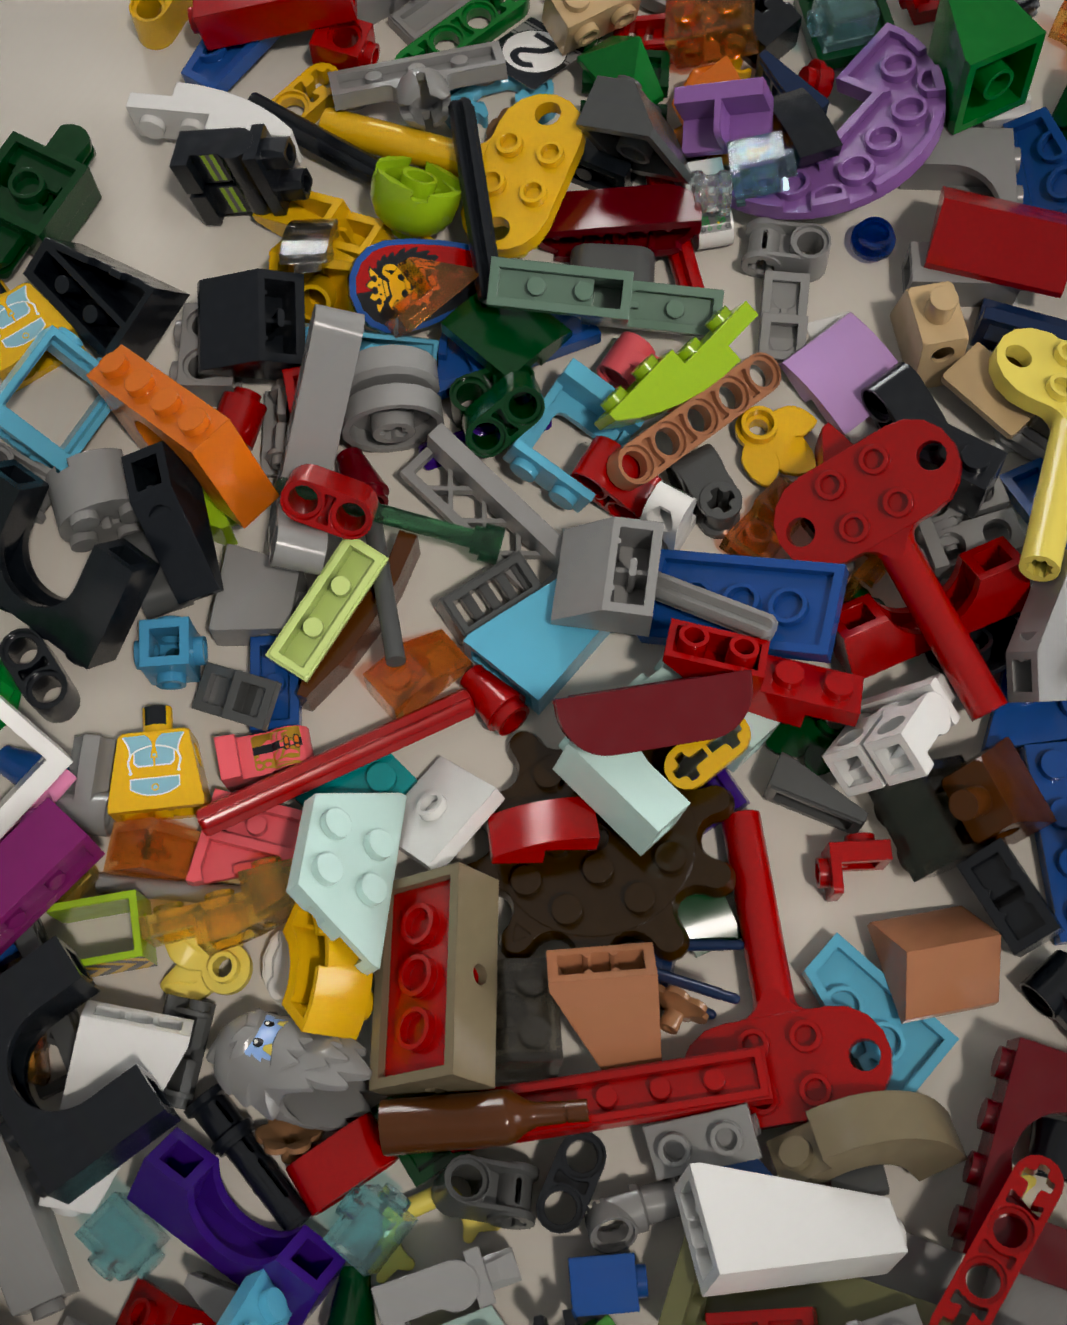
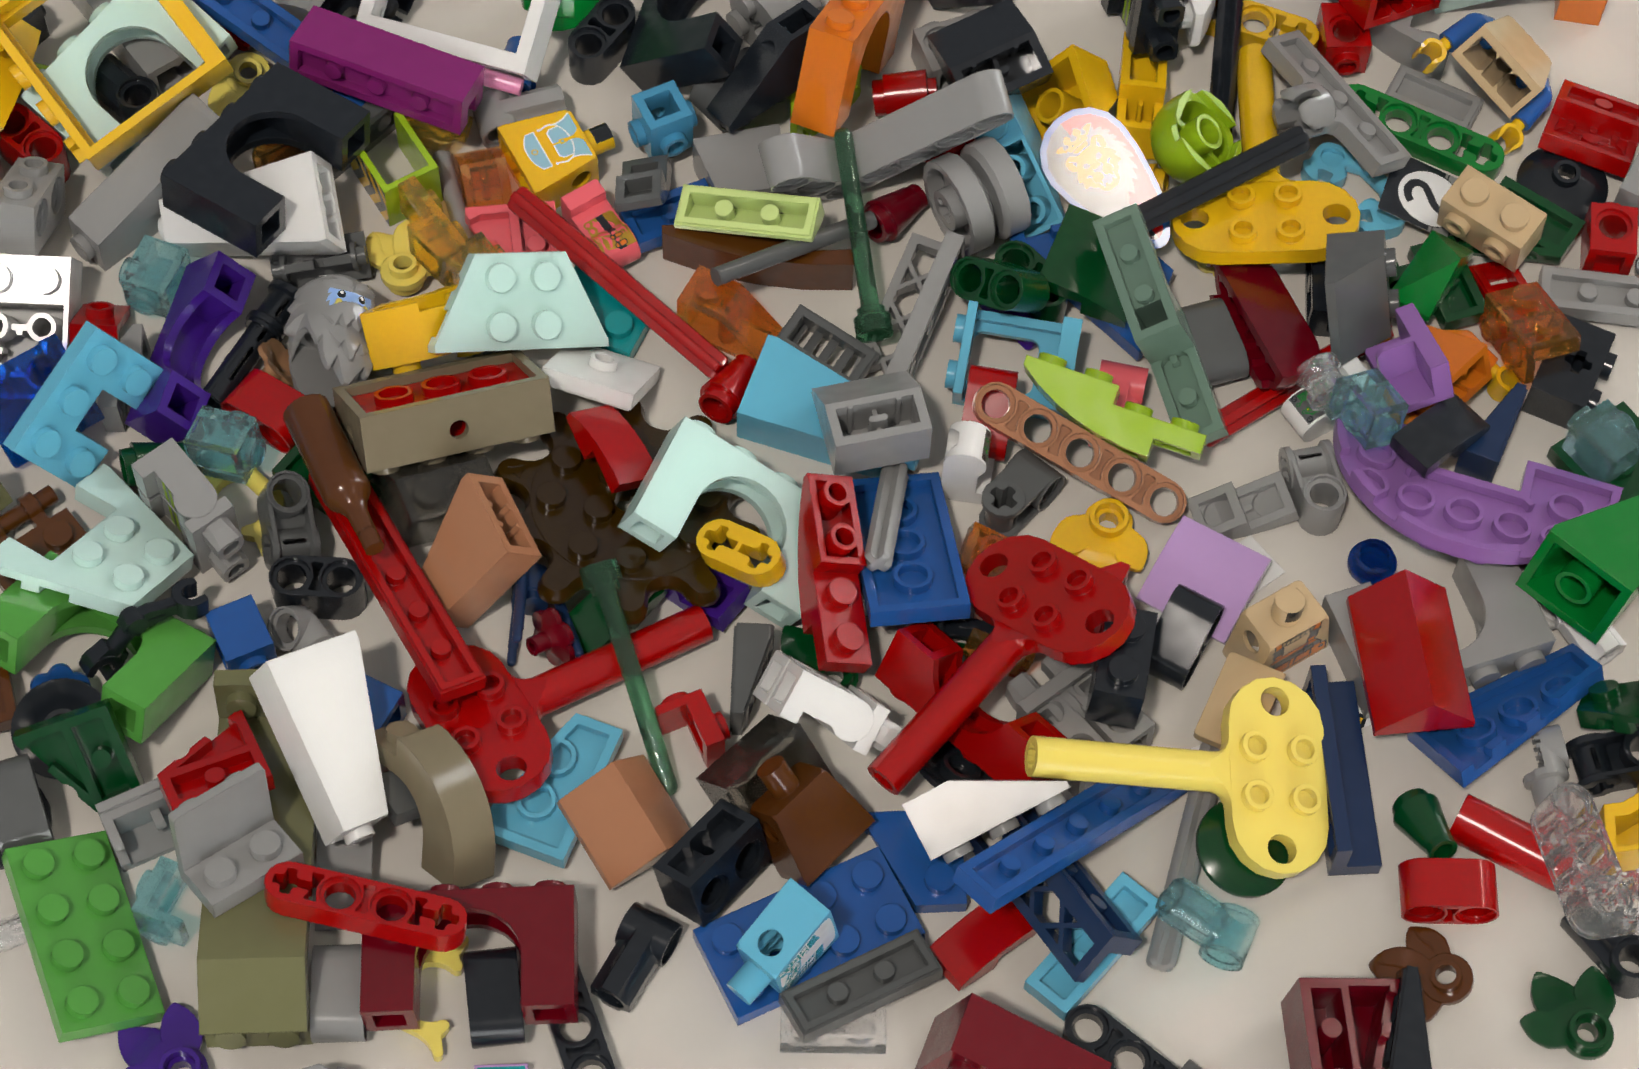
camera: 65 degrees right, 10 degrees down
(308, 244) = (1091, 67): clear smoke slope -> none
(327, 510) = (837, 168): red beam -> none
(435, 286) = (1100, 185): clear orange slope -> none
(655, 713) = (739, 470): dark red brick -> none
(679, 1007) = (498, 618): medium nougat plant -> none
(697, 892) = (603, 582): none -> clear green piece
(708, 1137) = (392, 666): light grey hinge -> none
(713, 965) = (551, 637): none -> dark red plant
(818, 76) = (1527, 449): red plate -> none

